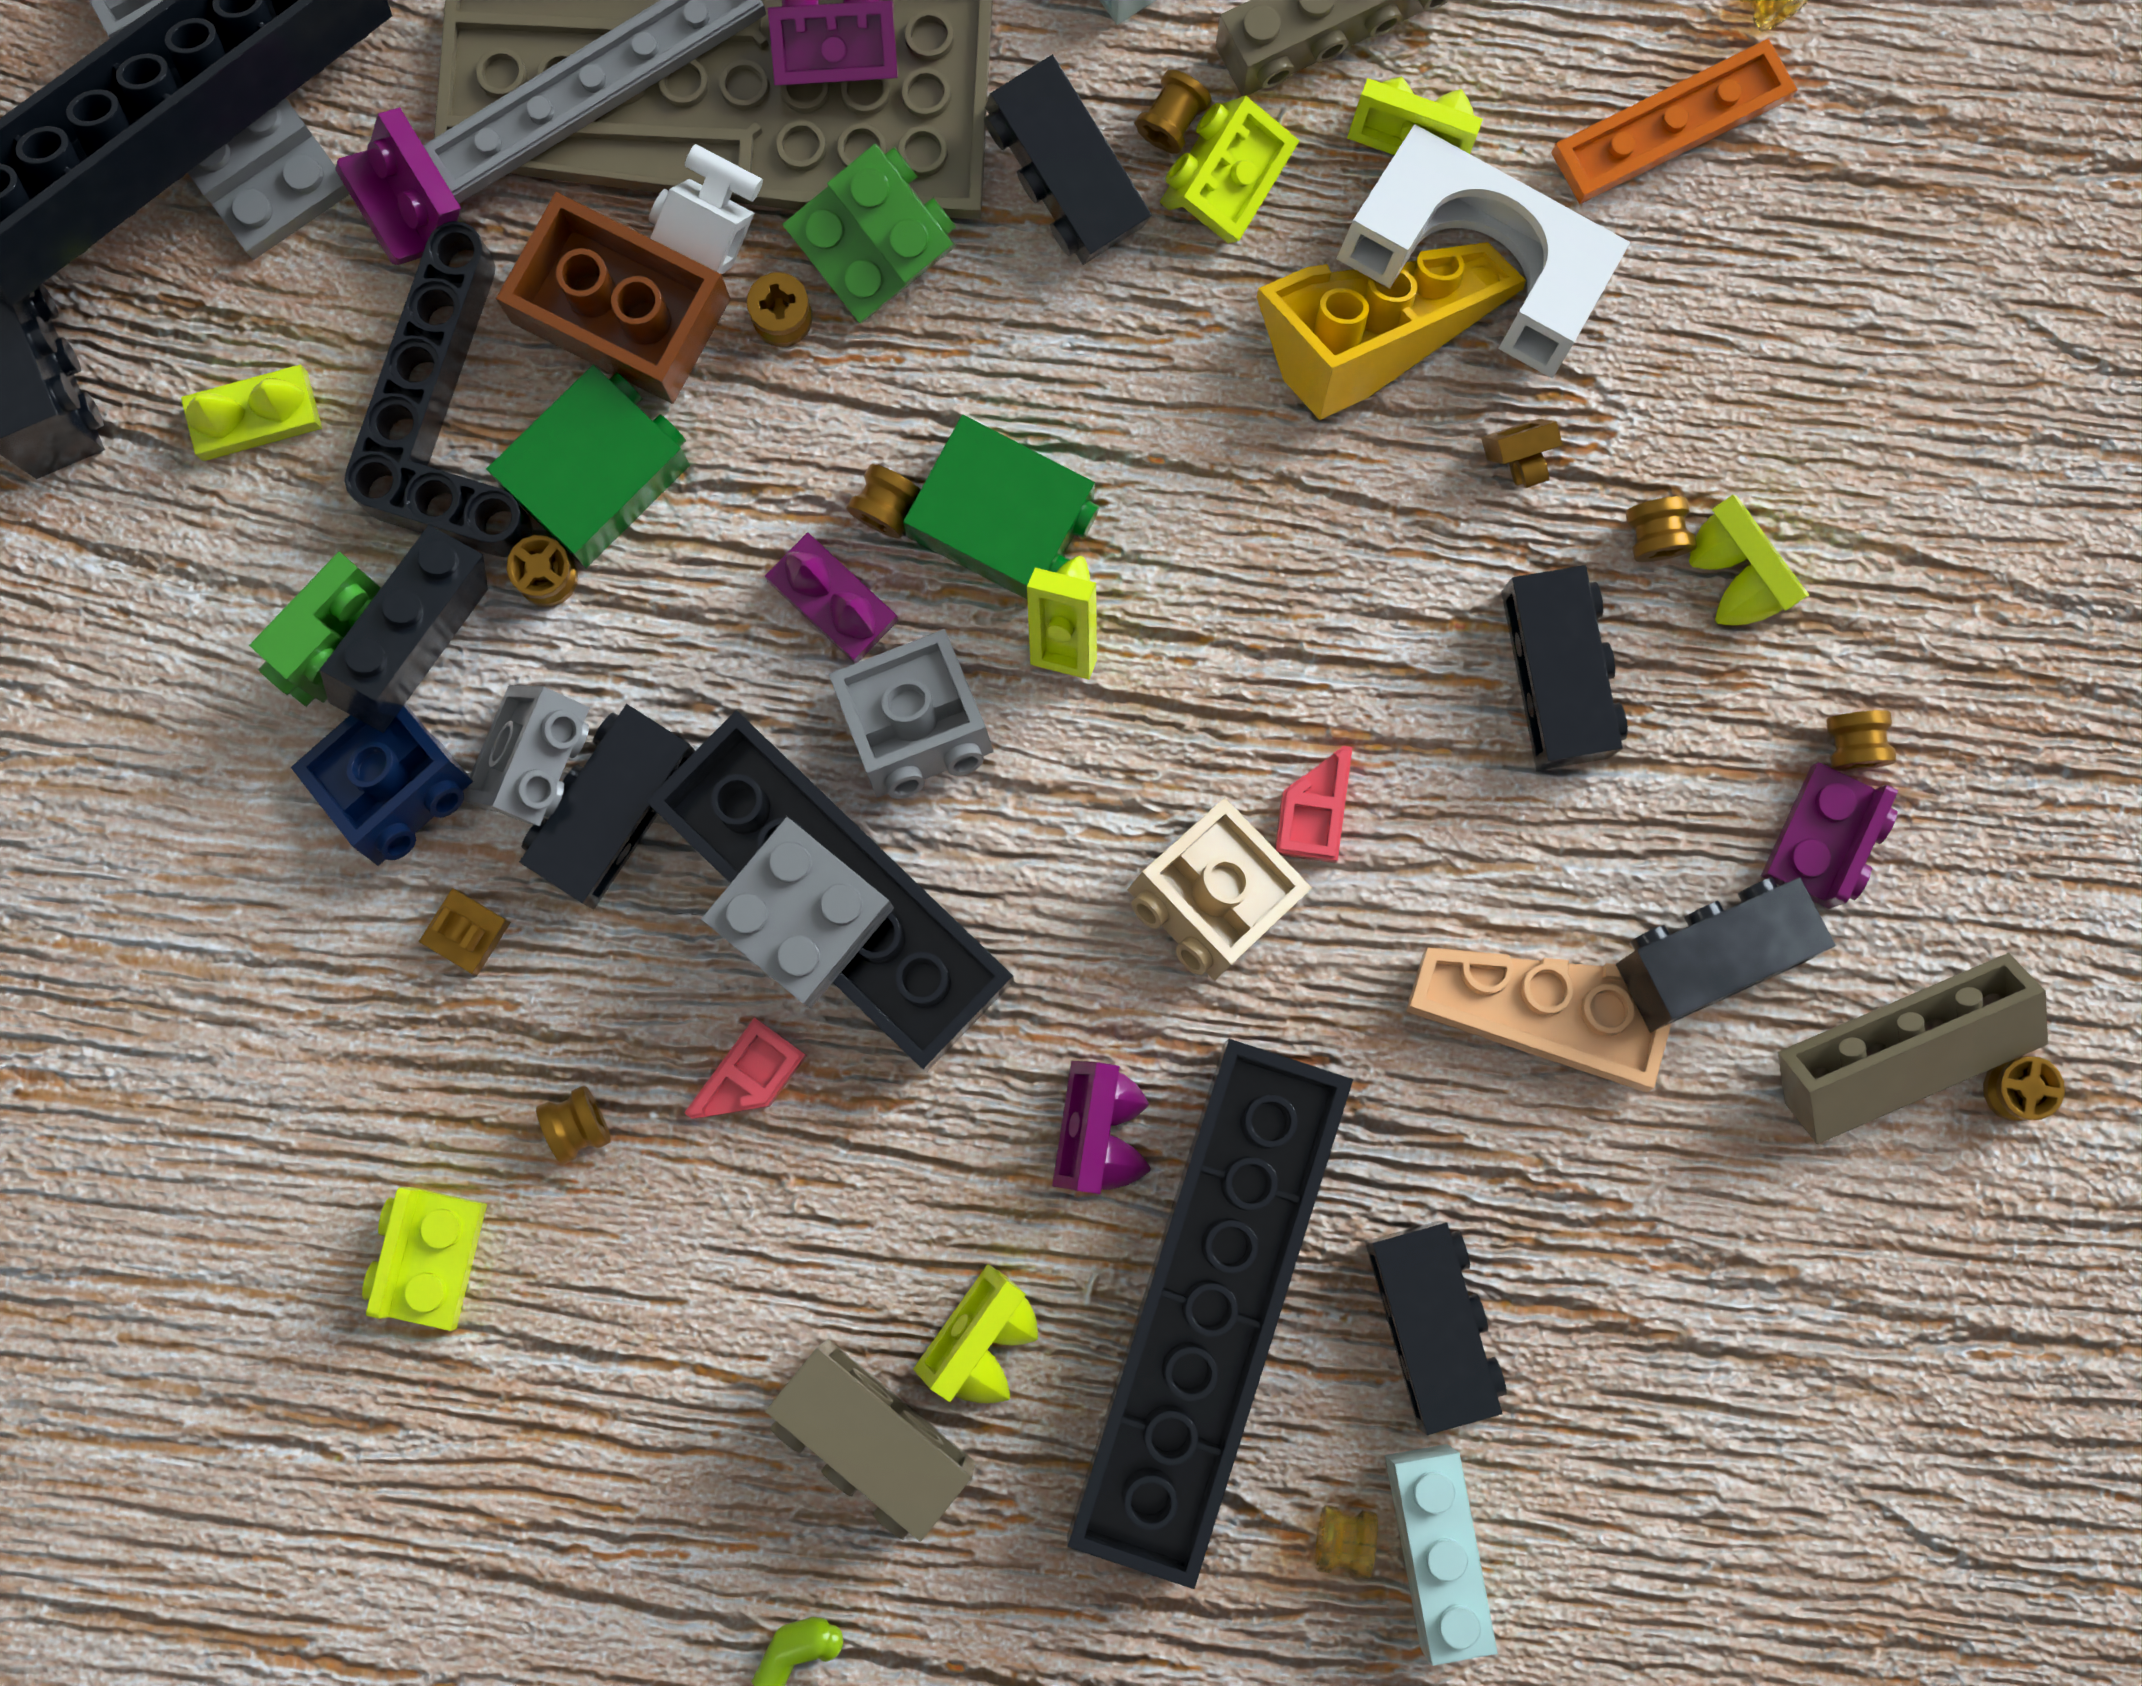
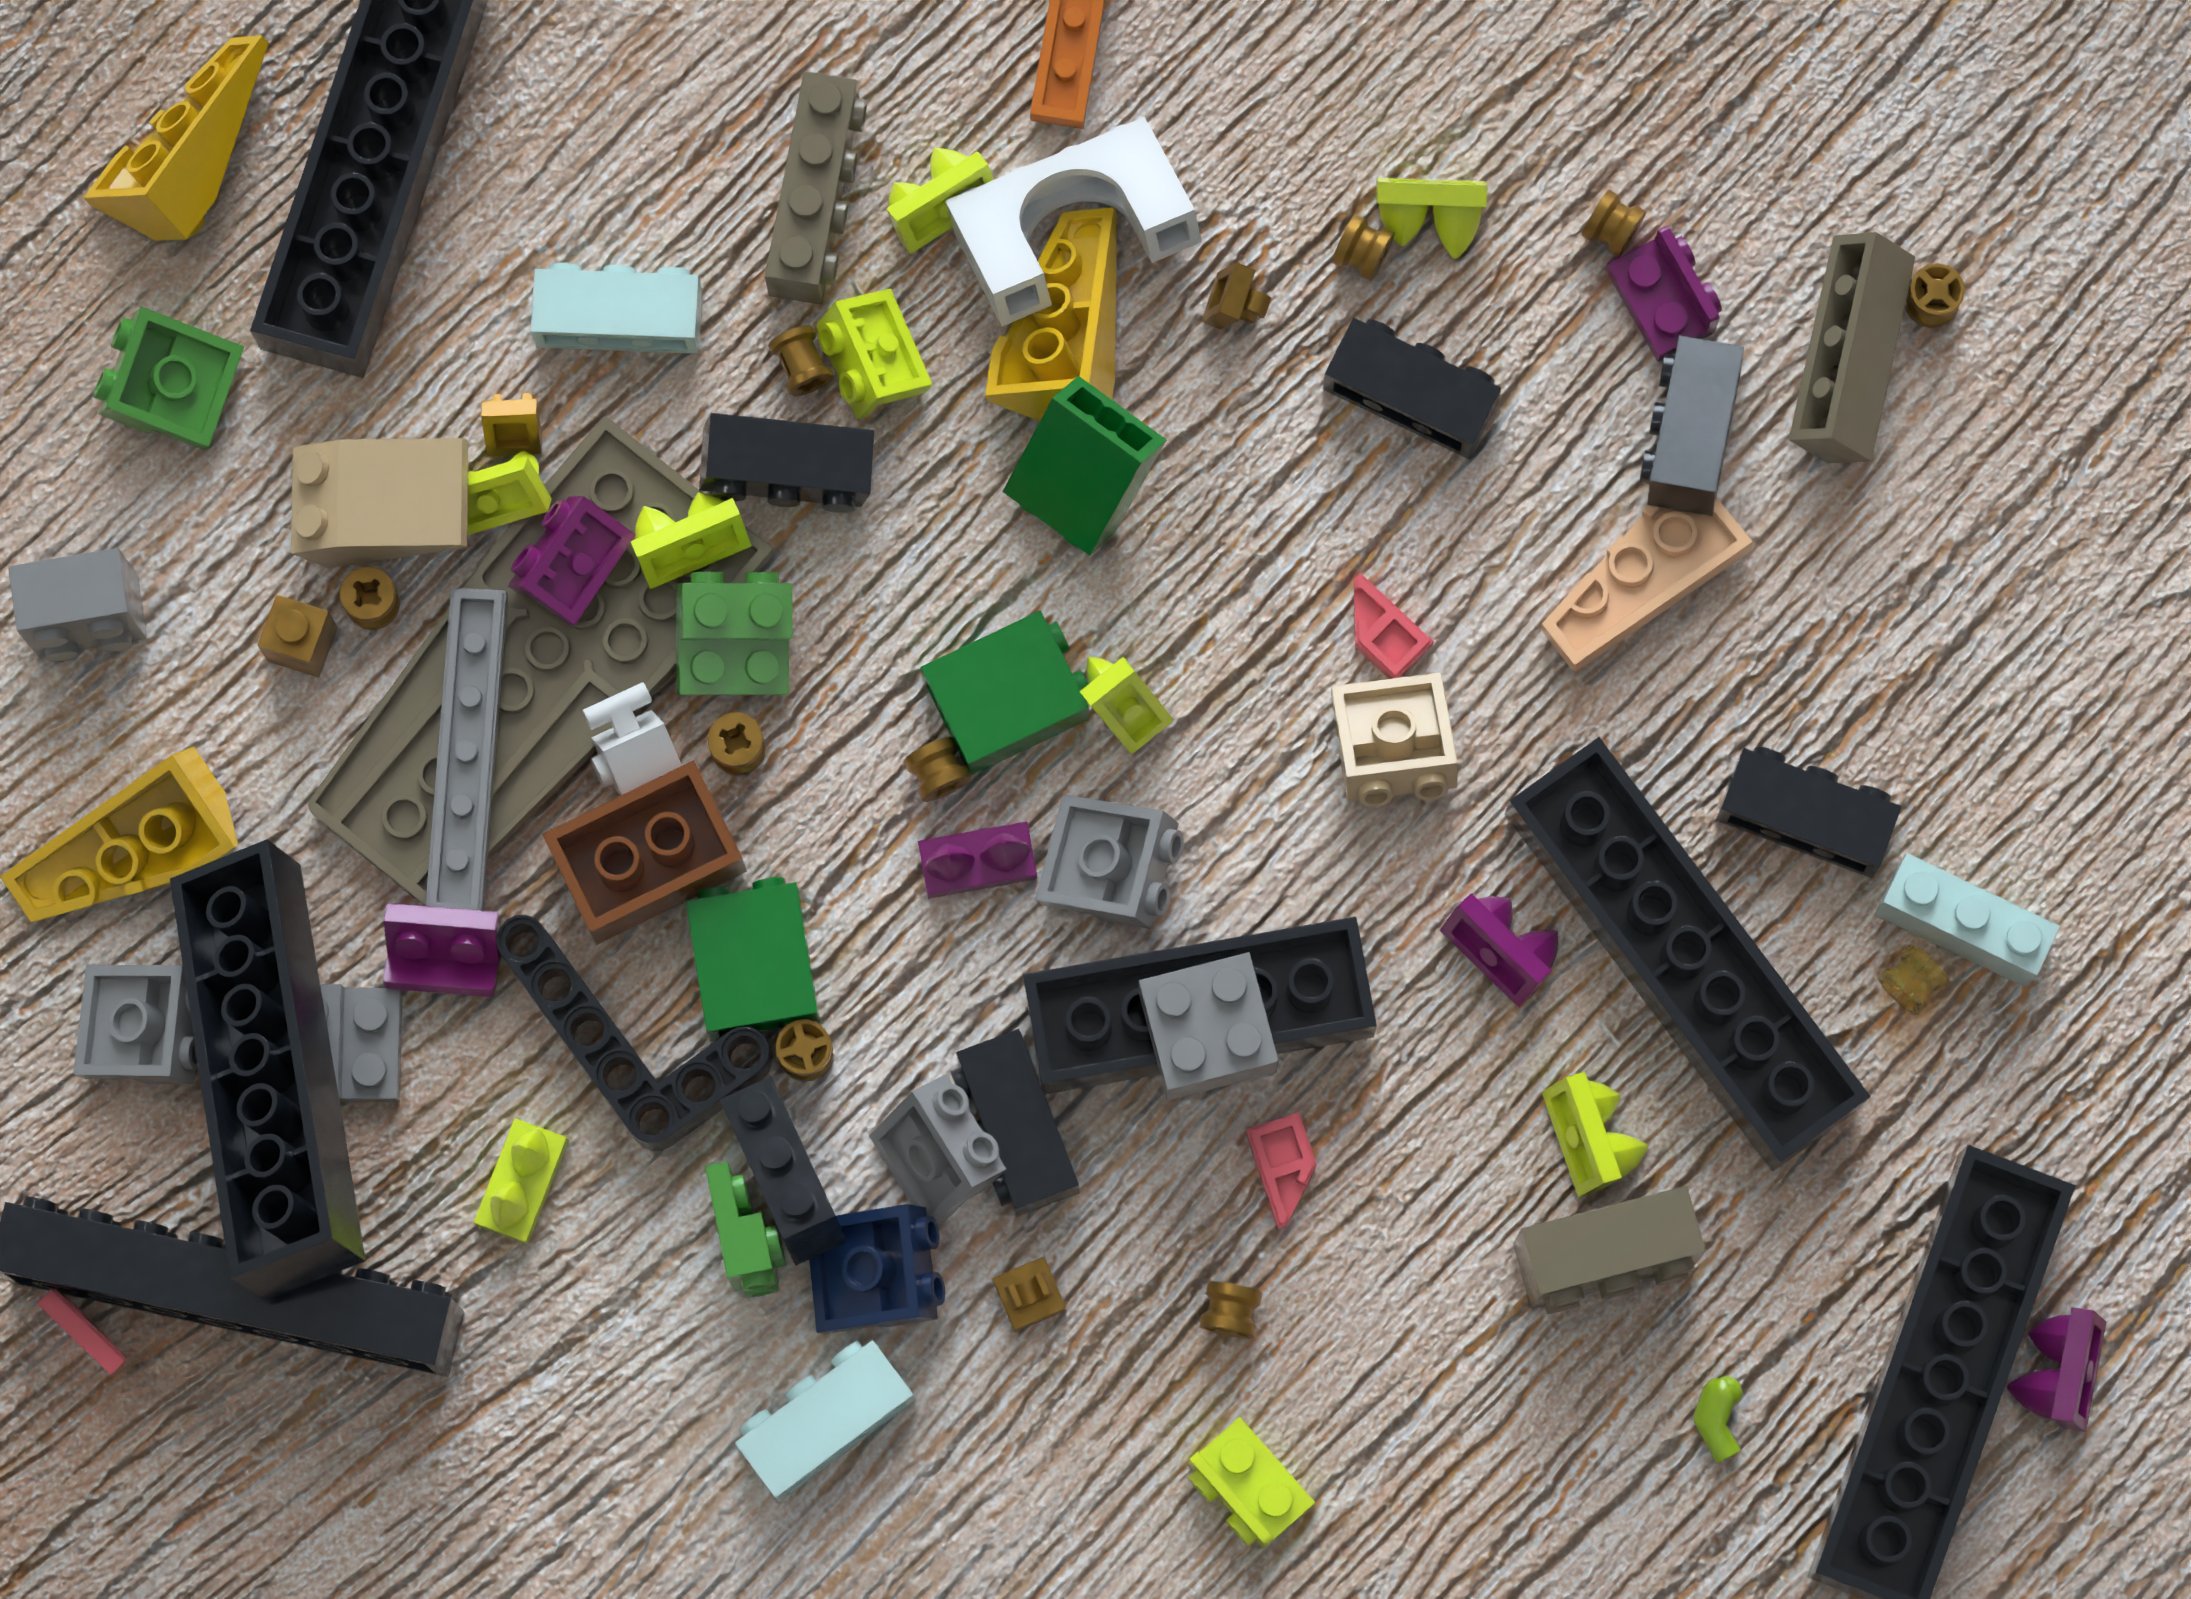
camera: 50 degrees left, 5 degrees down
(214, 829) = (823, 1418): none -> light aqua brick
(910, 119) = (677, 548): none -> neon yellow tile
(1259, 421) = (1084, 465): none -> green brick

